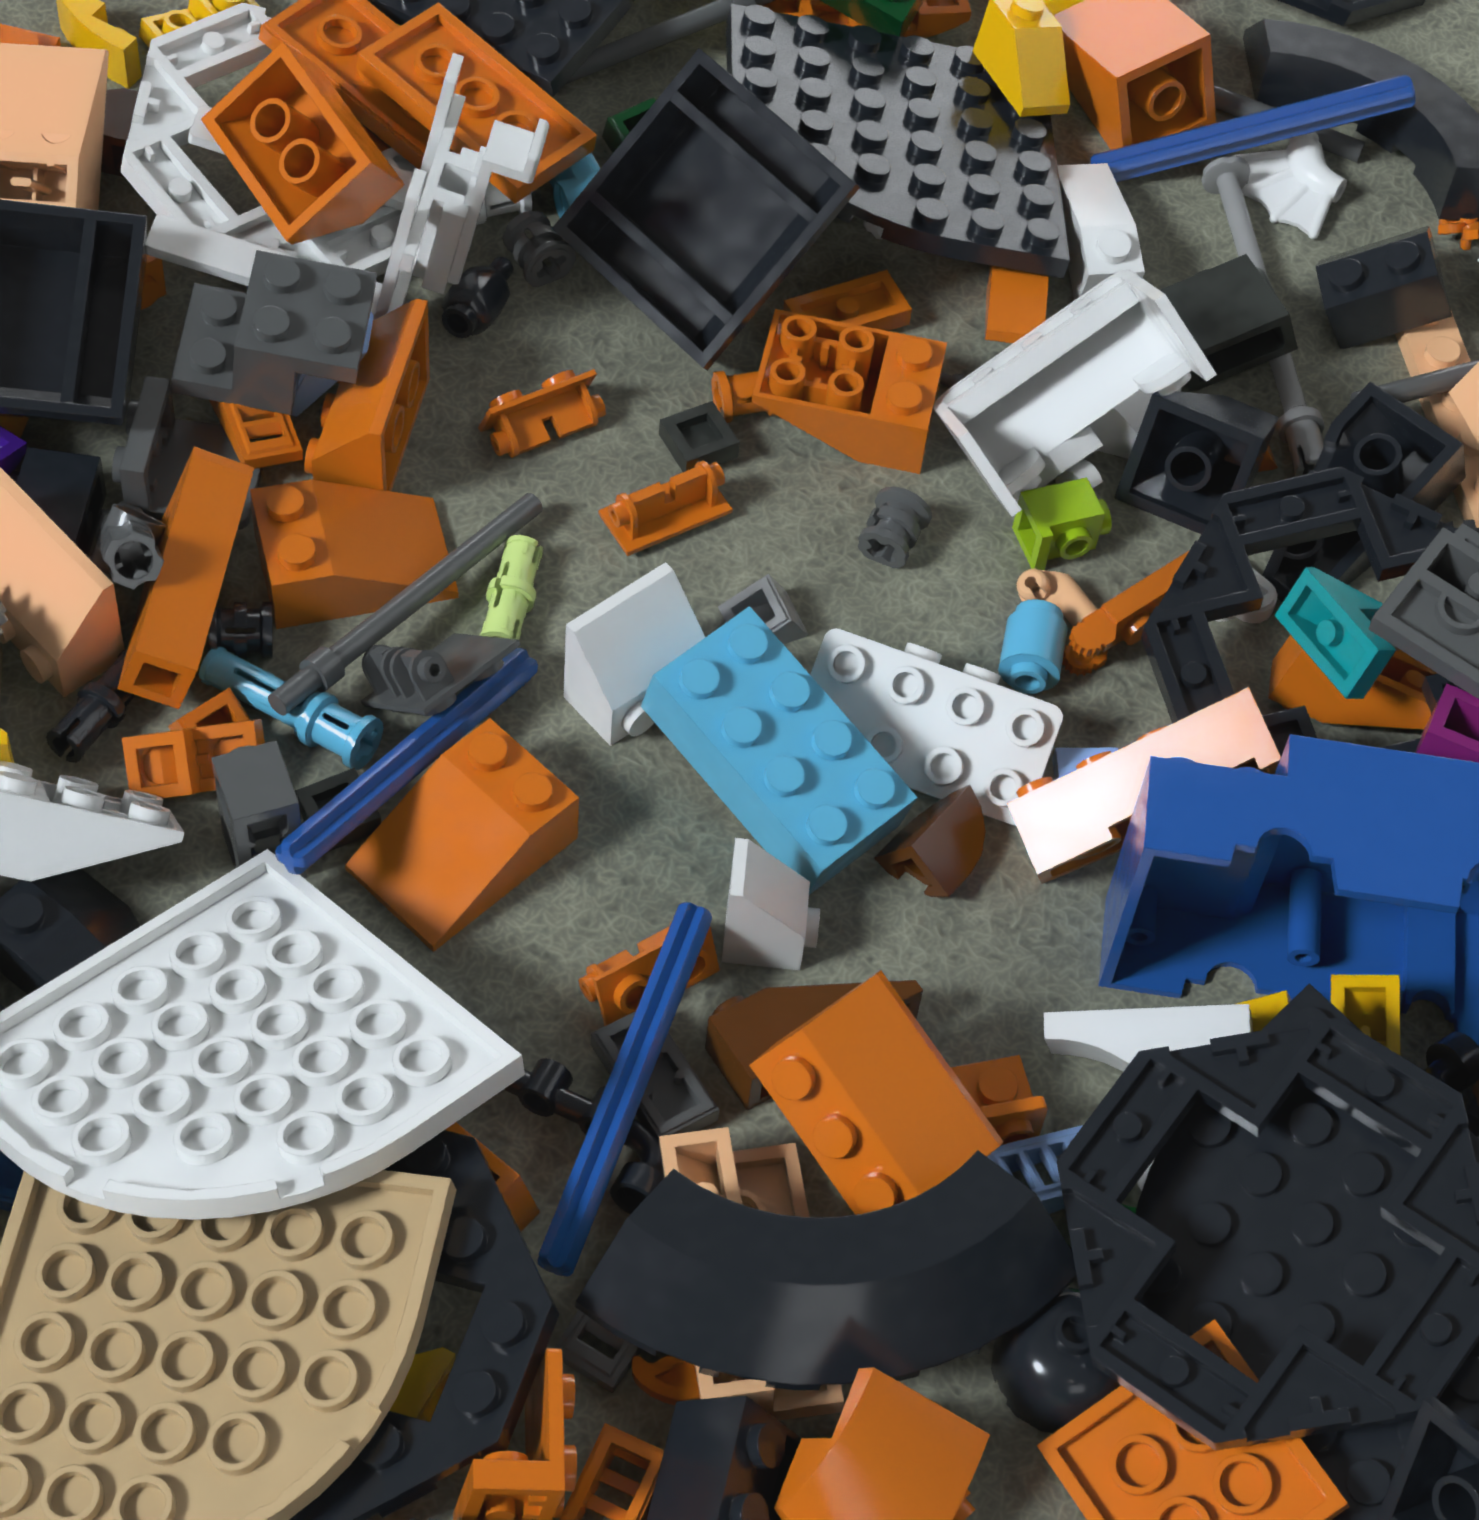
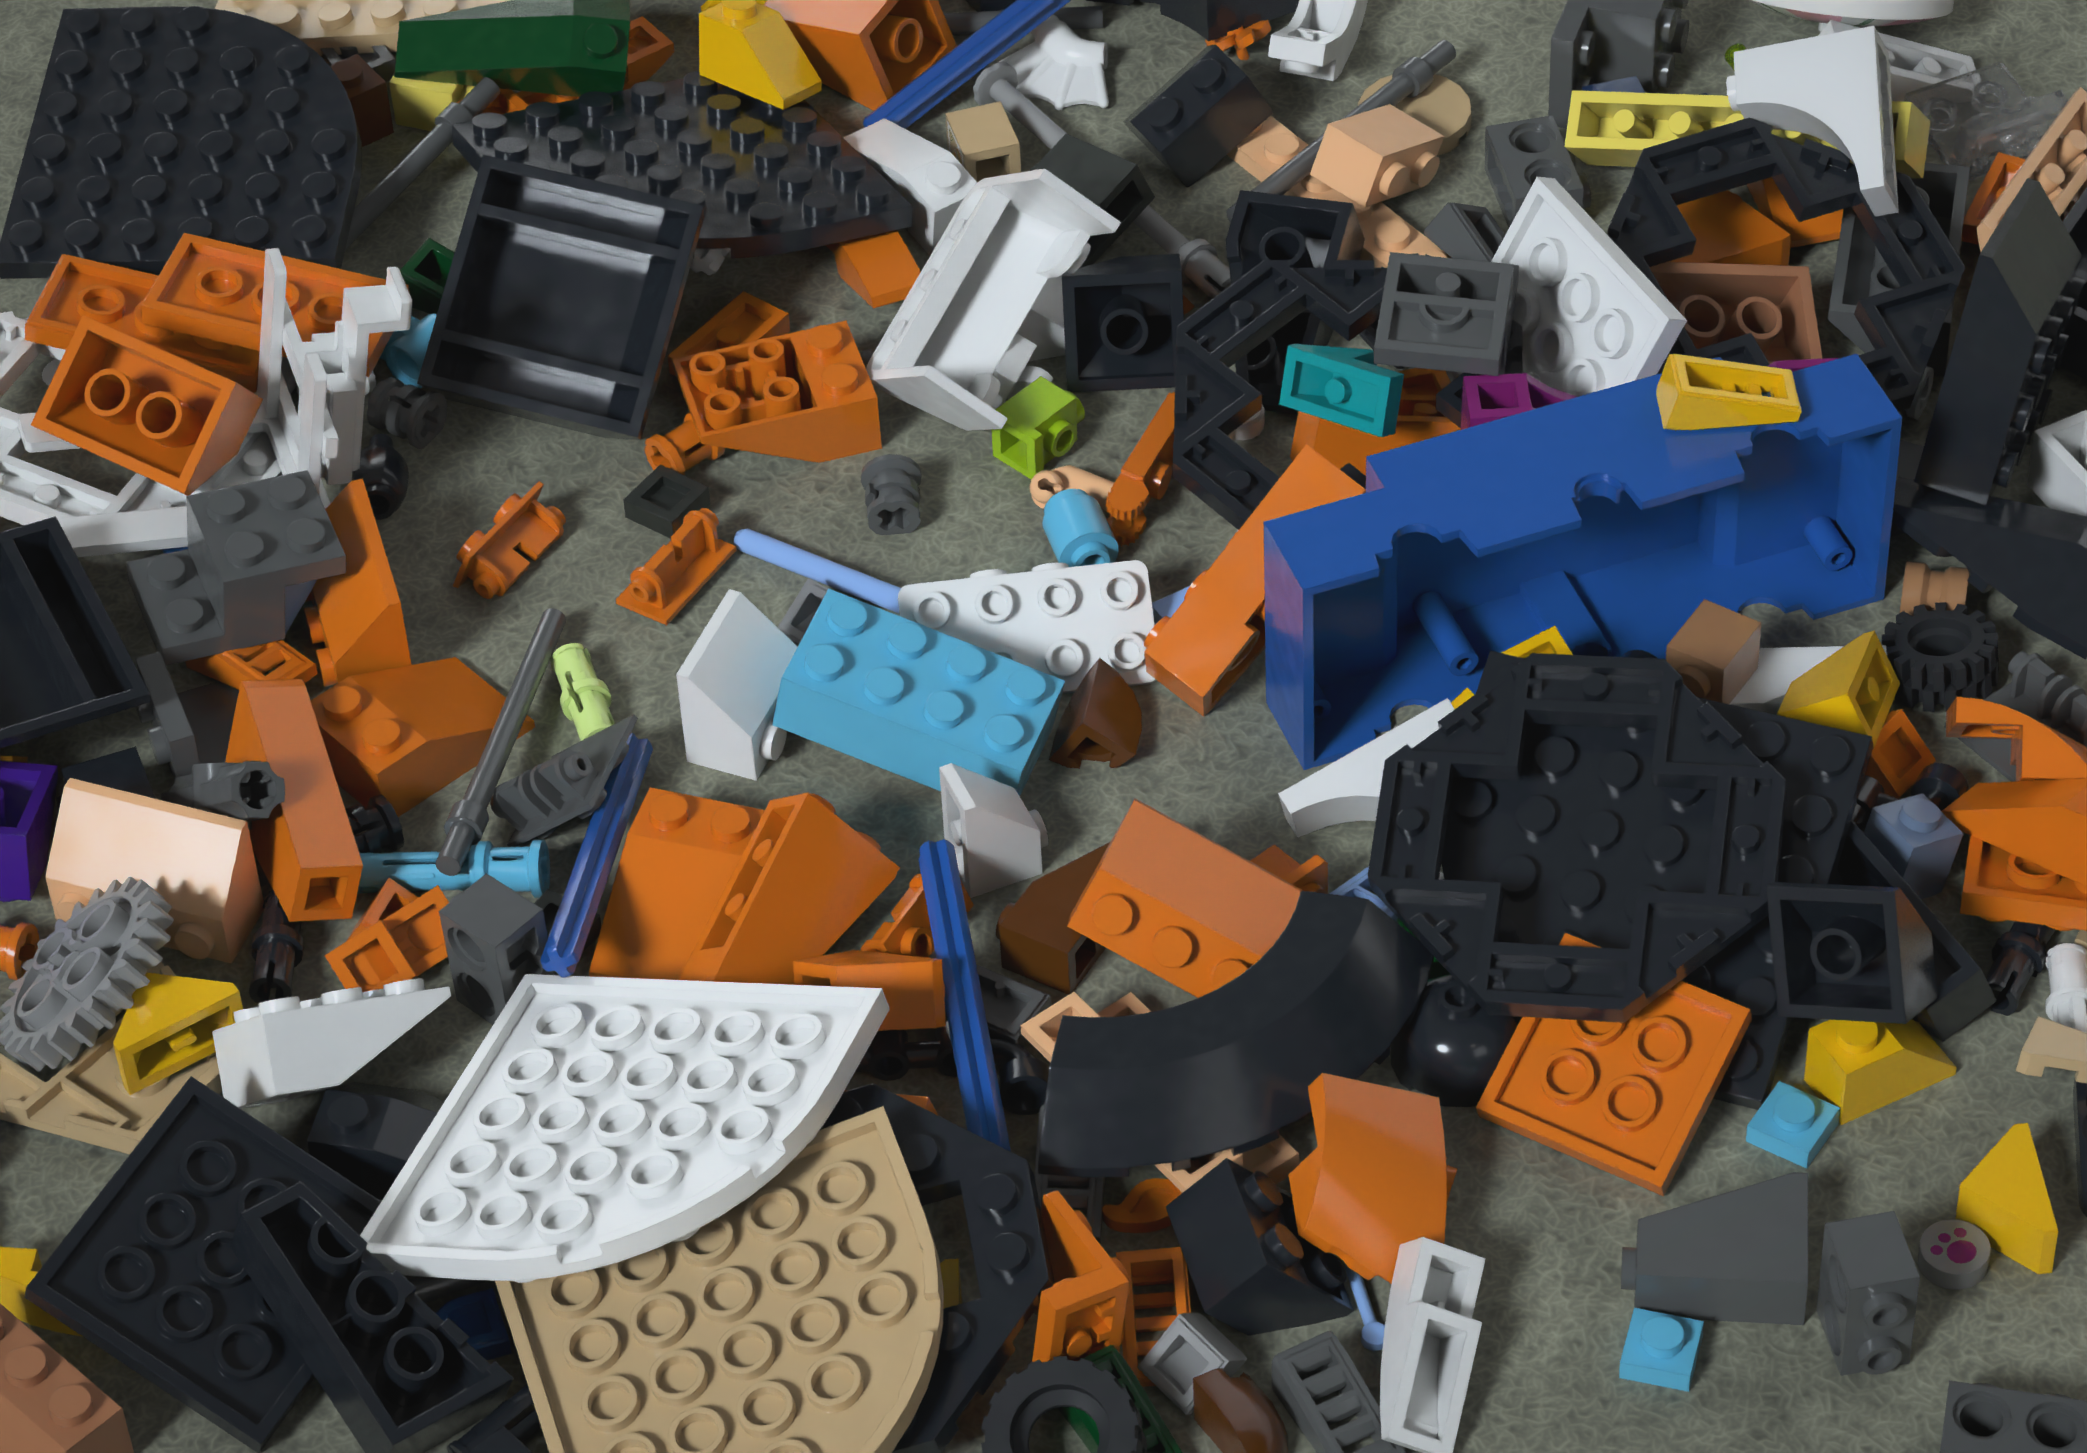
camera: 20 degrees left, 10 degrees down
(531, 899) = (789, 894): none -> orange slope
(551, 1025) = (909, 983): none -> orange slope
(789, 565) = (818, 568): none -> light blue bar
(1177, 231) = (983, 141): none -> tan brick

